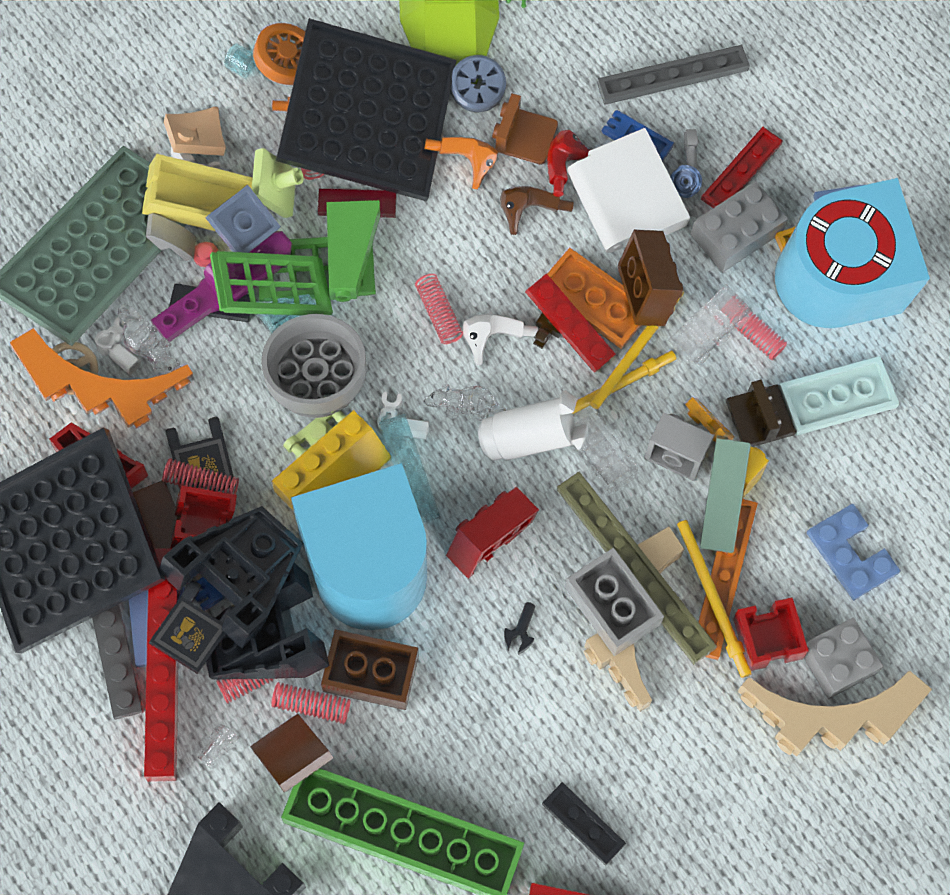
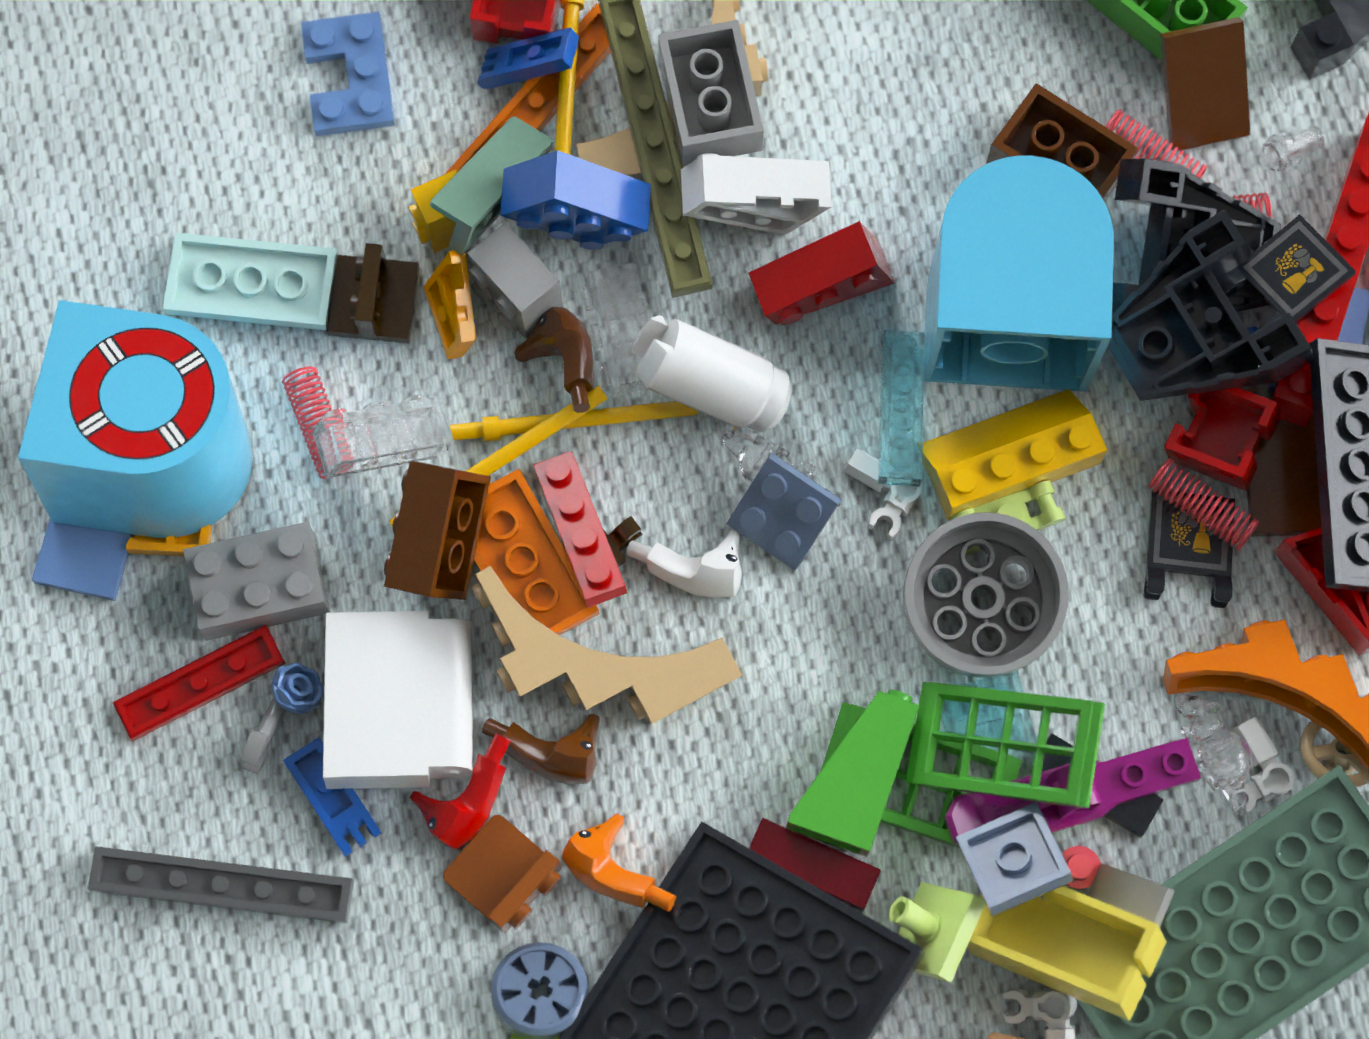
camera: 155 degrees left, 5 degrees up
(453, 328) = (771, 683): coral piece -> none
(454, 376) = (783, 511): none -> sand blue plate
(521, 629) = (837, 143): black bar -> none
(523, 244) = (540, 655): none -> tan arch
(558, 556) = (756, 191): none -> white wedge
(630, 431) = (565, 336): none -> reddish brown animal
(664, 497) = (575, 200): none -> blue brick
(741, 594) = (528, 58): none -> blue hinge

